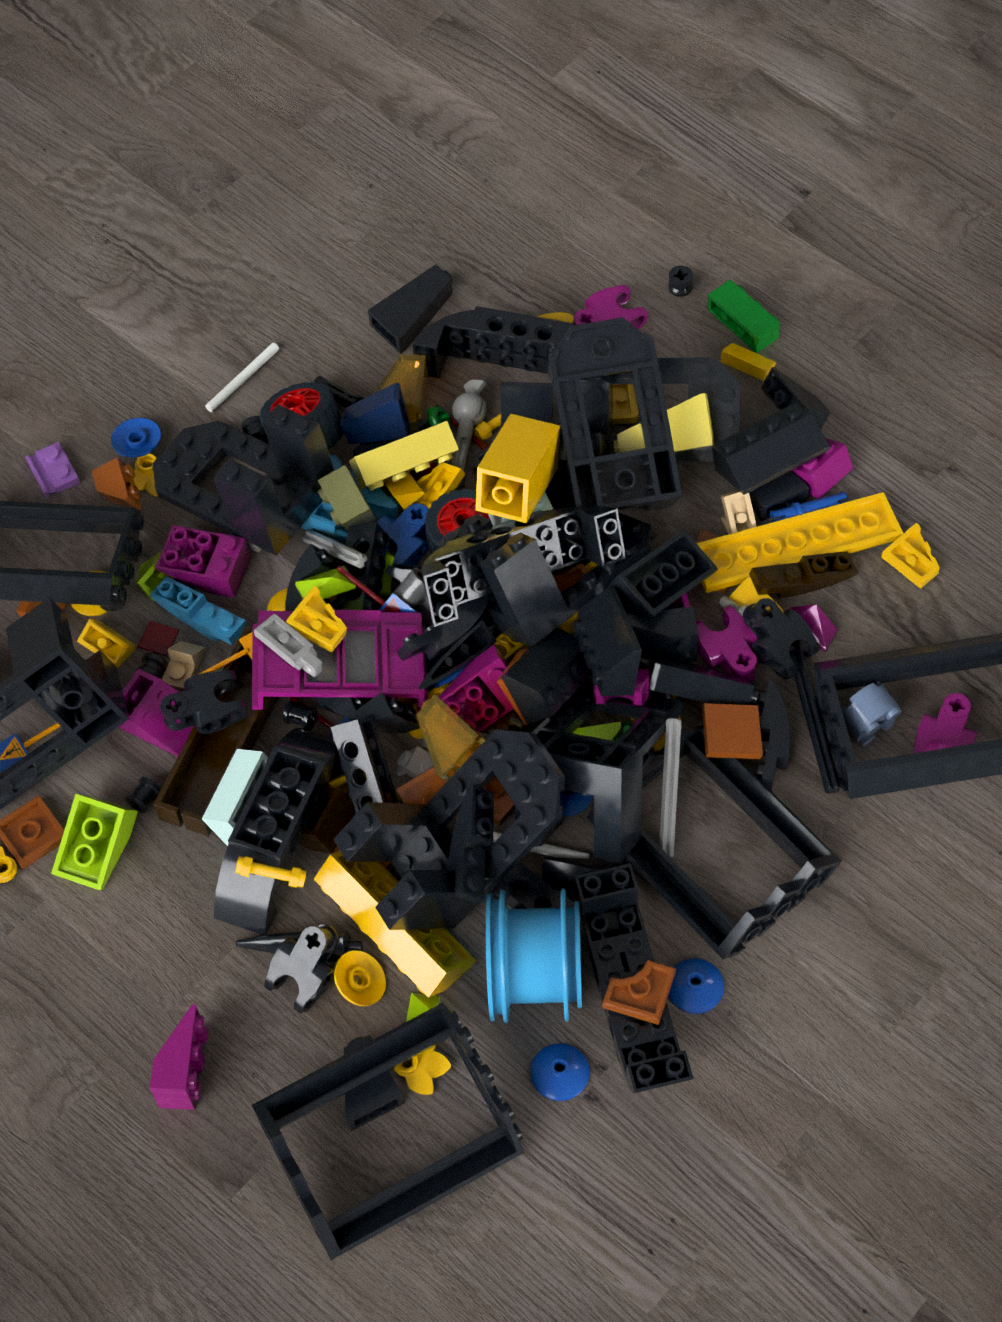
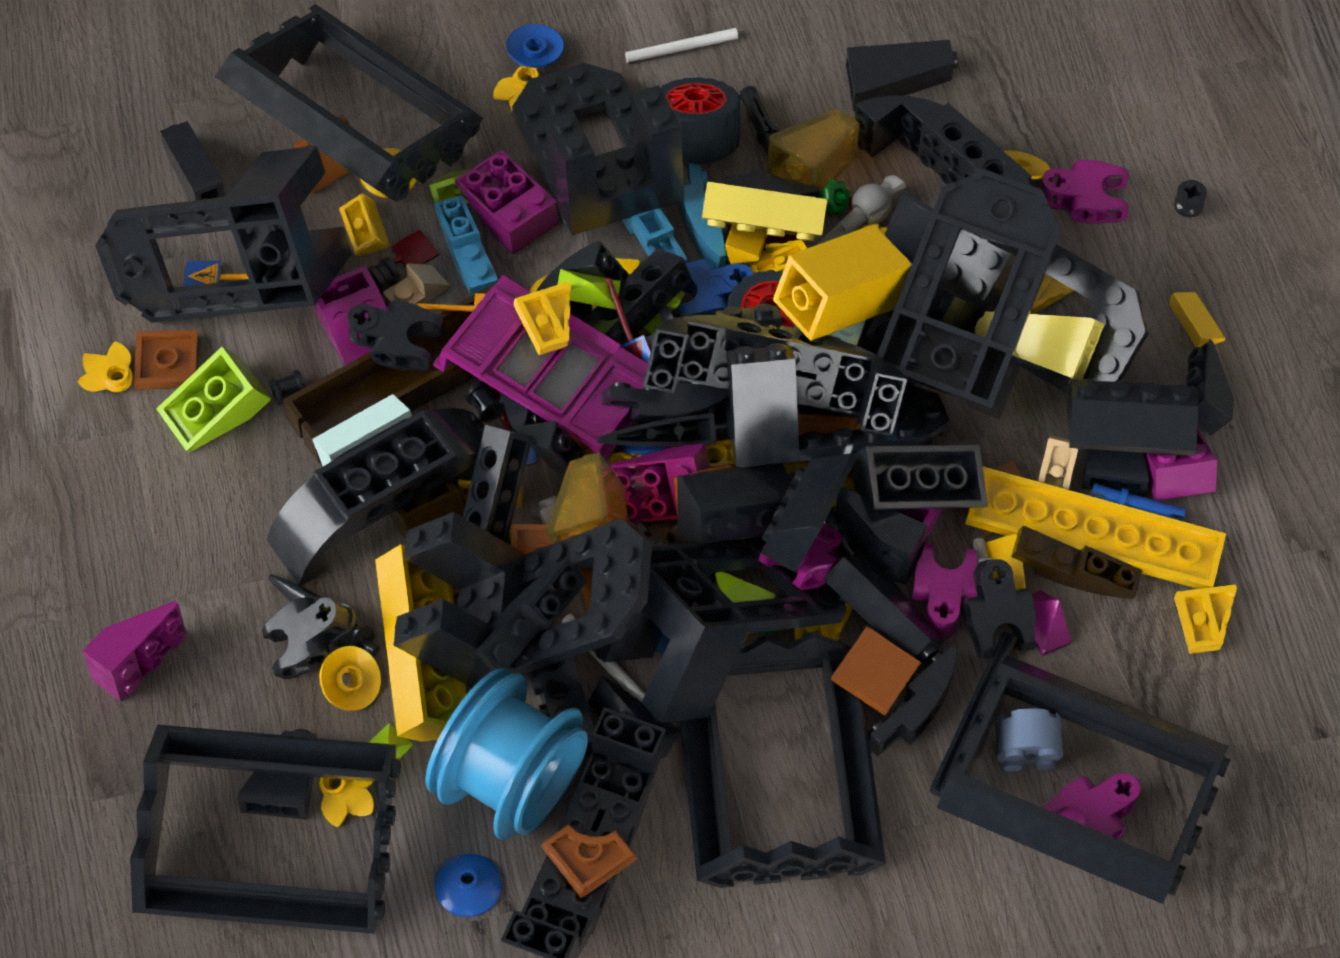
camera: 30 degrees right, 0 degrees up
(52, 469) = (438, 32): medium lavender plate -> none
(117, 484) = (483, 79): dark orange slope -> none
(289, 645) = (502, 322): light grey hinge -> none
(295, 876) = (351, 544): yellow bar -> none
(335, 548) = (628, 261): light grey axle -> none
(345, 498) = (674, 219): olive slope -> none
(377, 417) = (767, 158): dark blue slope -> none
(670, 785) = (769, 685): light grey axle -> none
(696, 998) = (652, 903): blue dish -> none
(743, 316) = (1227, 271): green brick -> none

